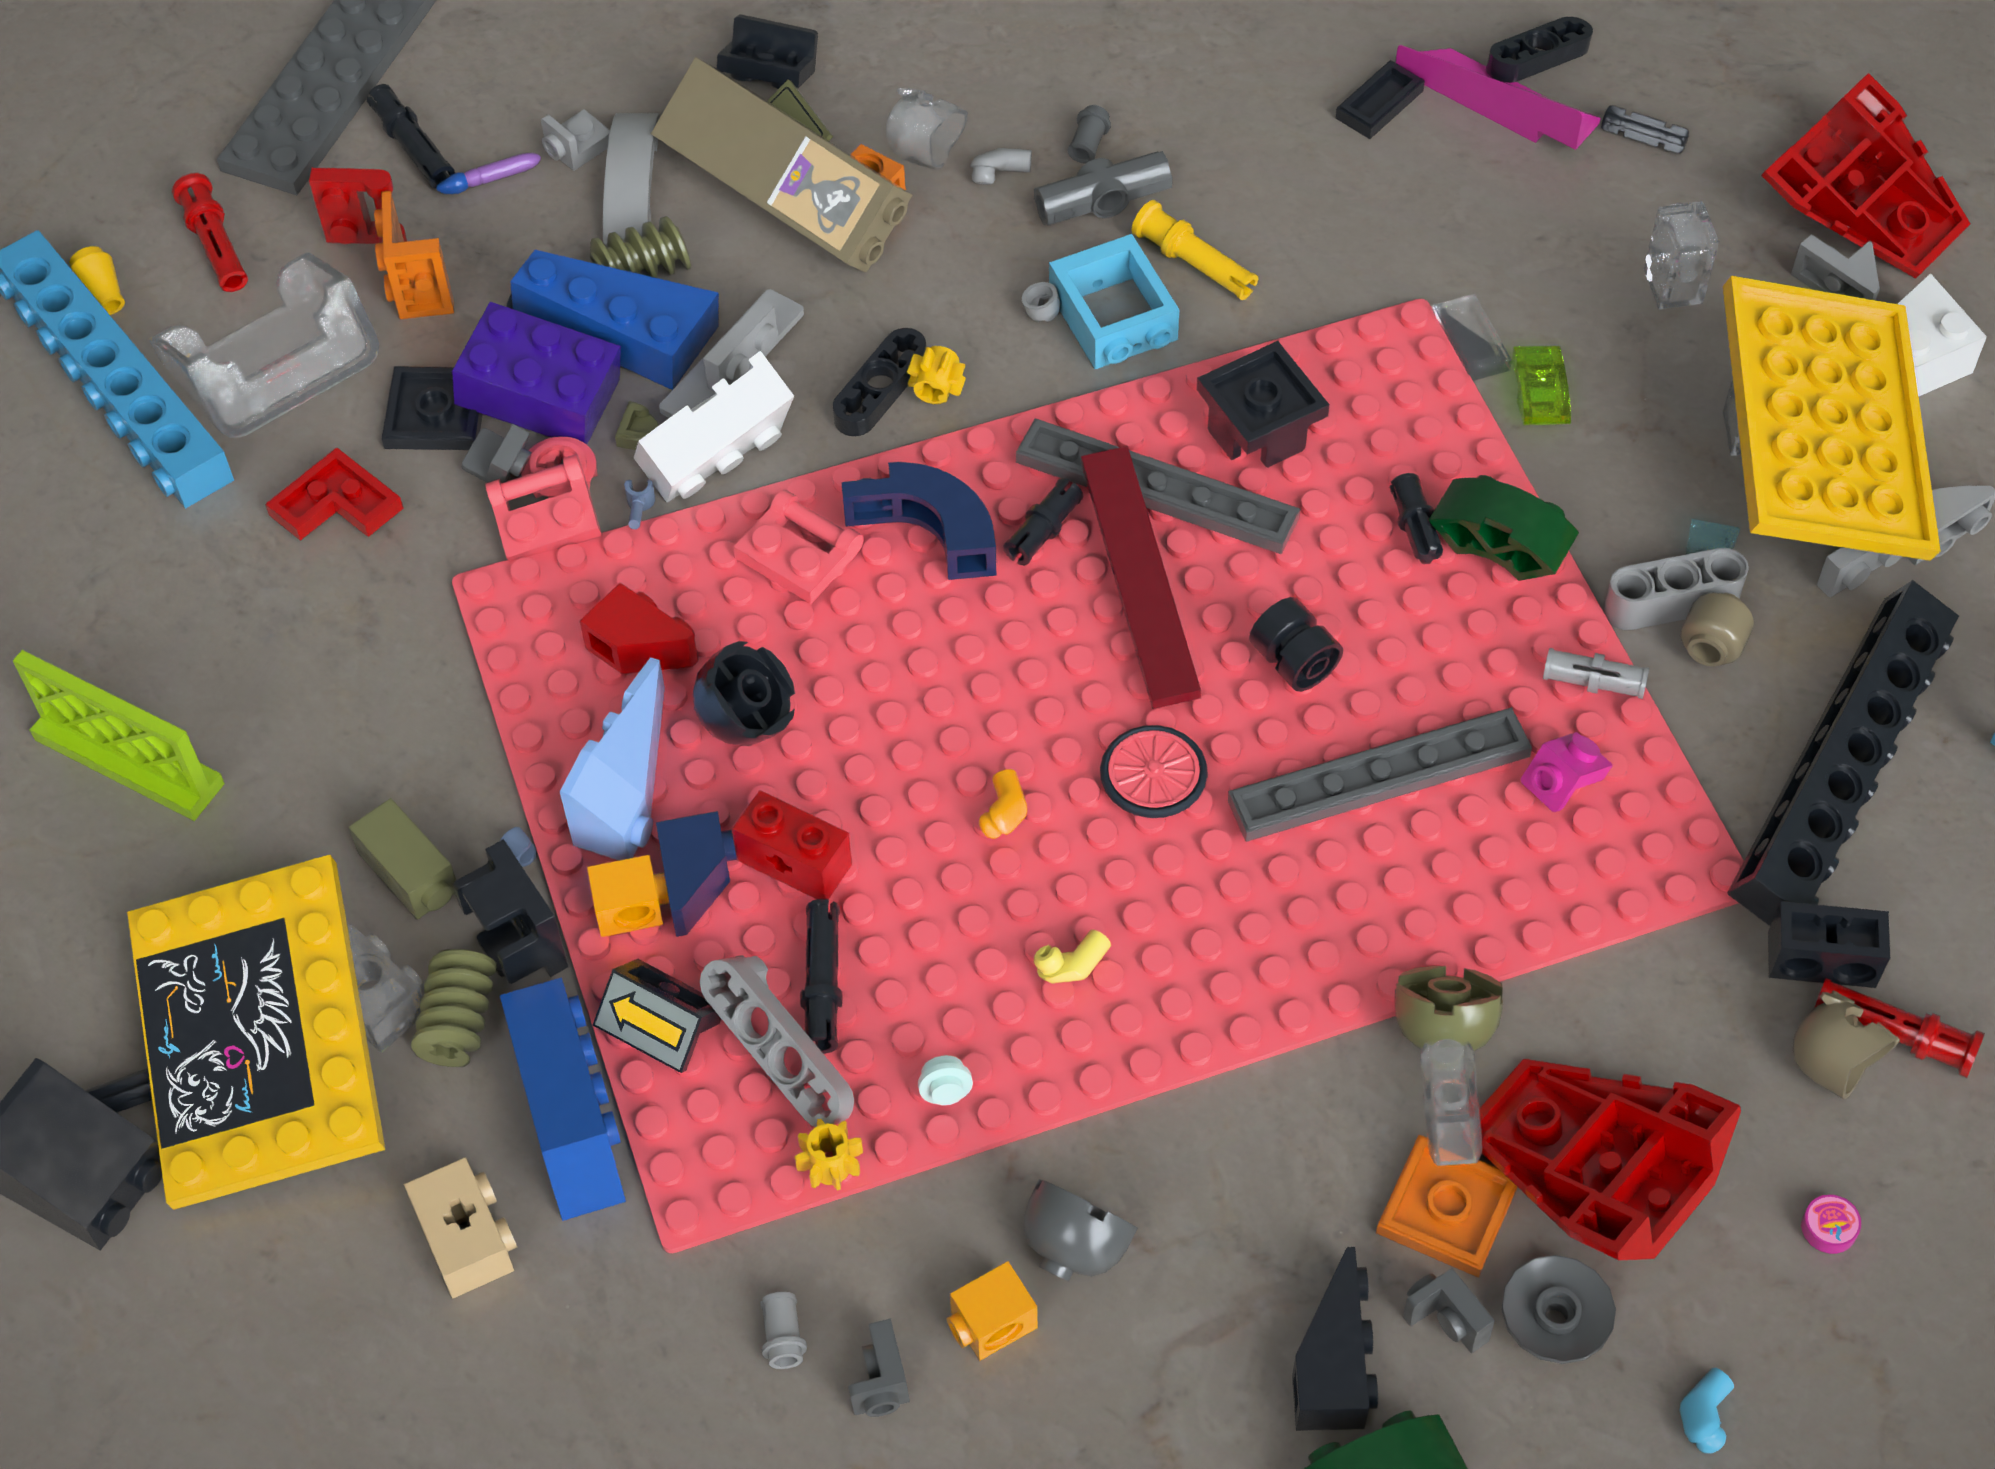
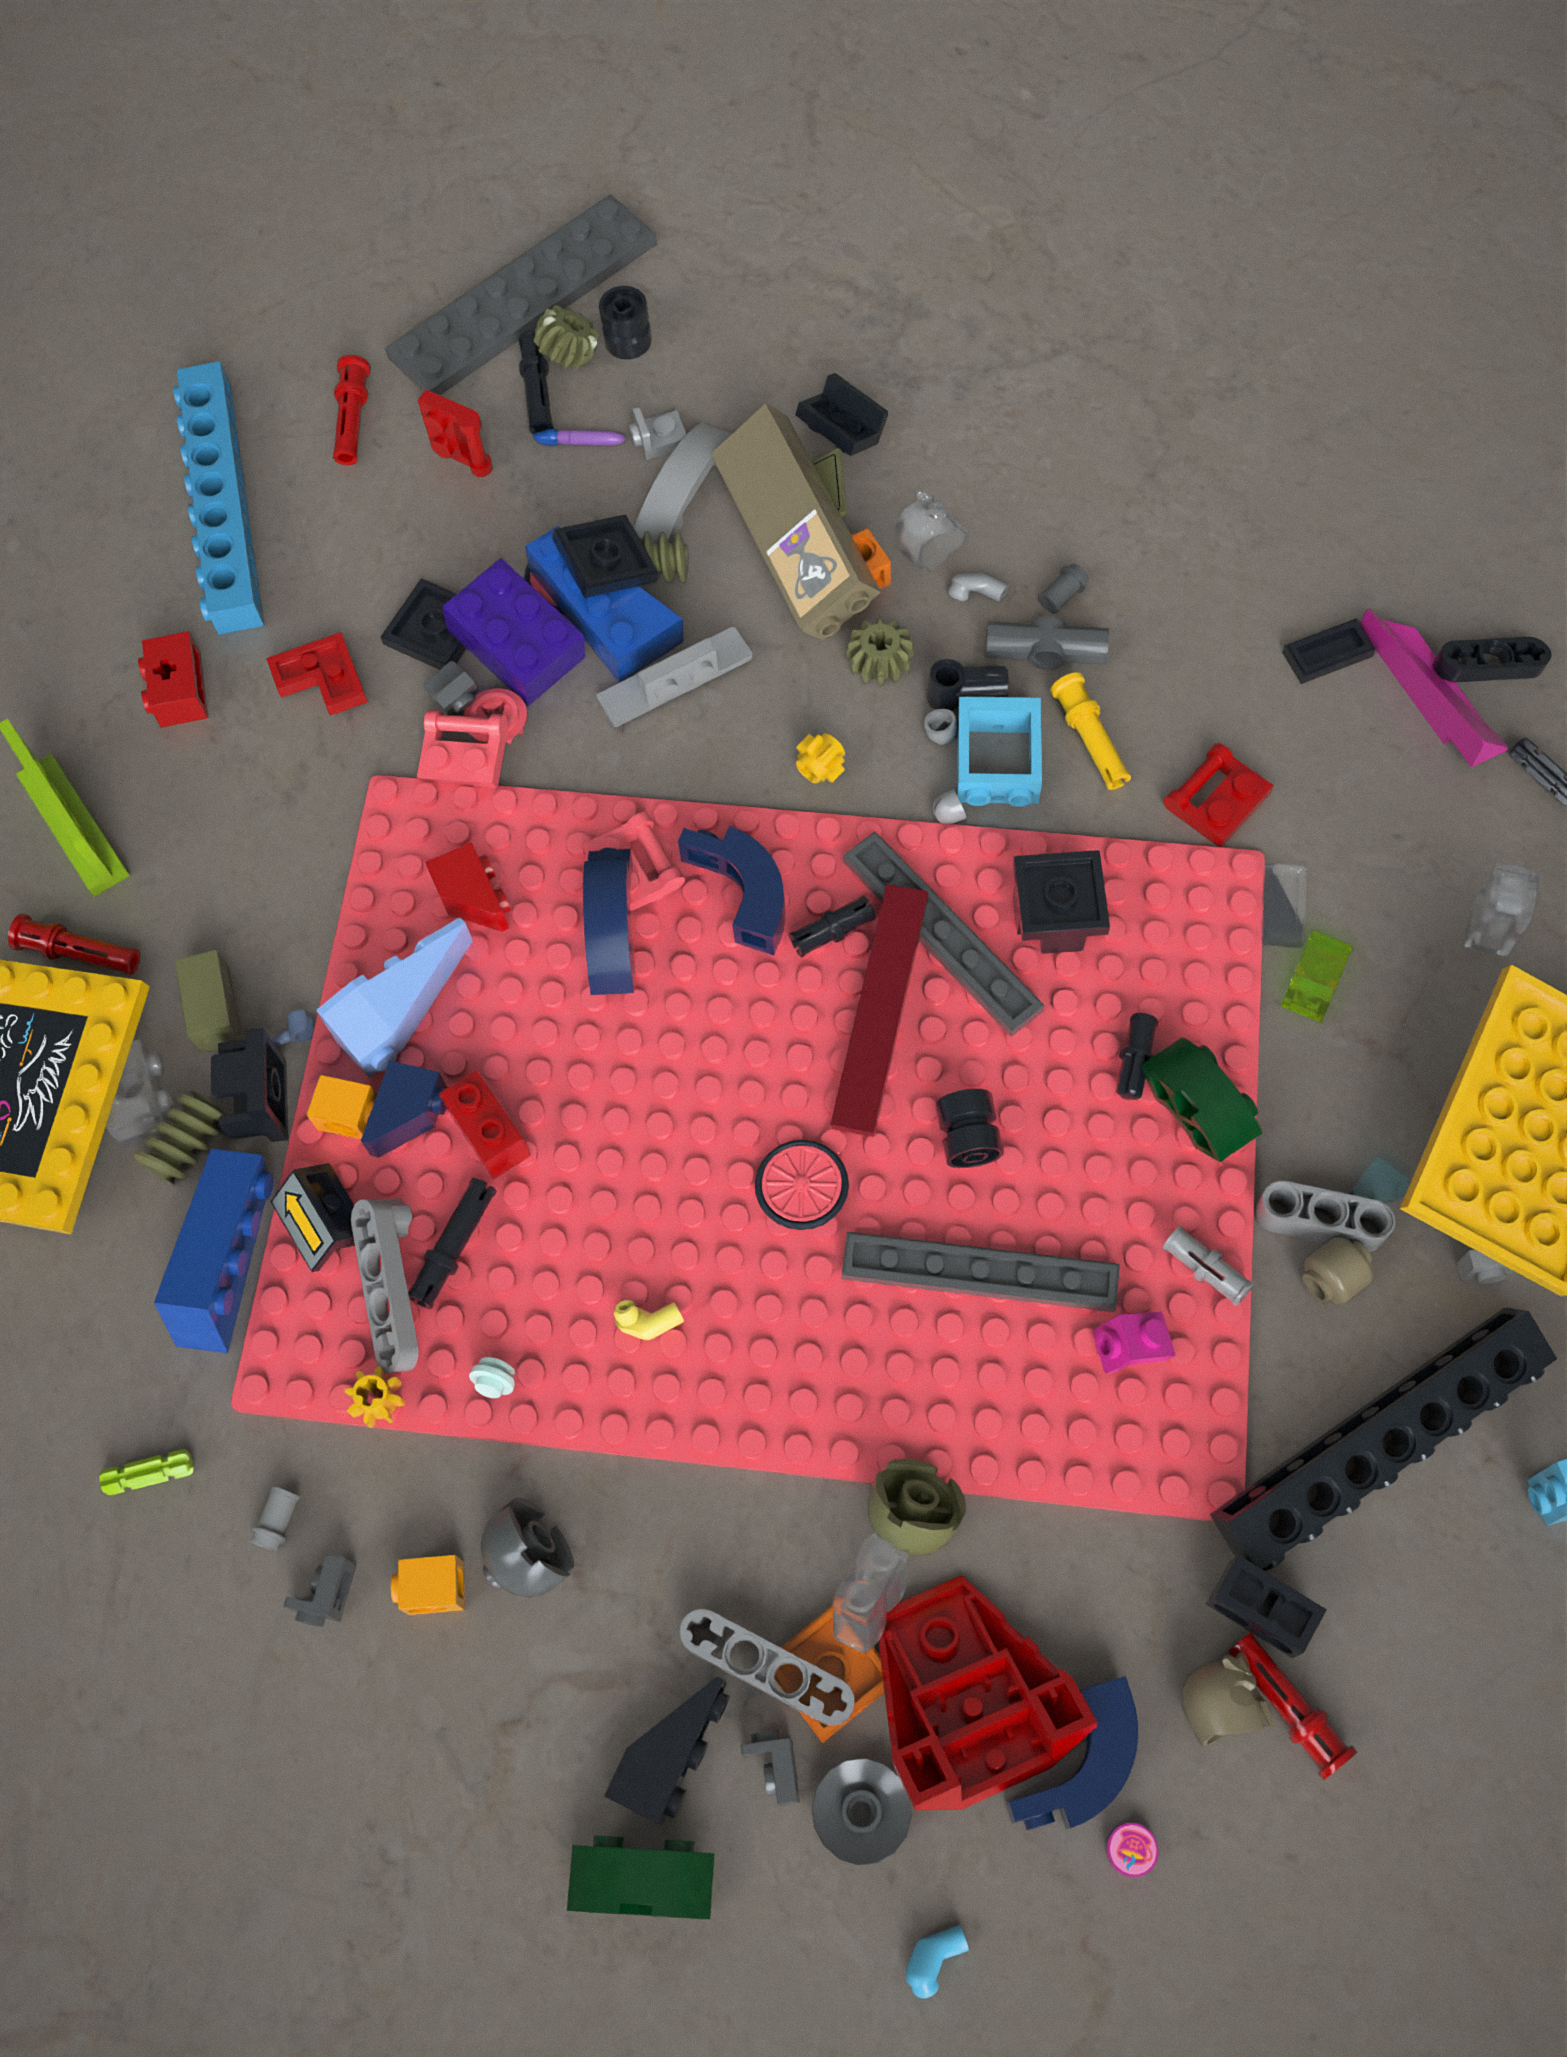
camera: 30 degrees right, 10 degrees up
(98, 274) = (249, 417): yellow cone -> none
(166, 564) = (173, 679): none -> red brick
(182, 876) = (58, 942): none -> red pin
(280, 357) = (334, 537): clear windscreen -> none
(414, 268) = (463, 497): orange bracket -> none
(423, 78) = (566, 337): none -> olive gear
(466, 1255) = (83, 1333): tan brick -> none
(480, 43) = (625, 322): none -> black wheel
(605, 258) = (605, 556): none -> black tile
(607, 1352) = (146, 1472): none -> lime axle
(634, 426) = (574, 708): olive tile -> none
(638, 502) = (538, 771): sand blue hand -> none
(716, 431) = (618, 739): white wedge -> none
(743, 695) = (512, 981): black cylinder -> none
(818, 598) = (608, 921): none -> dark blue arch
(877, 400) = (773, 759): black beam -> none
(937, 256) = (880, 651): none -> olive gear
(1008, 809) = (668, 1166): light orange arm -> none
(1029, 254) = (964, 682): none -> black piece
(1094, 372) = (948, 808): none -> light grey hinge
(1365, 269) = (1228, 804): none -> red plate
(1389, 1232) = (763, 1673): none -> light grey beam
(1763, 1162) = (1104, 1768): none -> dark blue arch

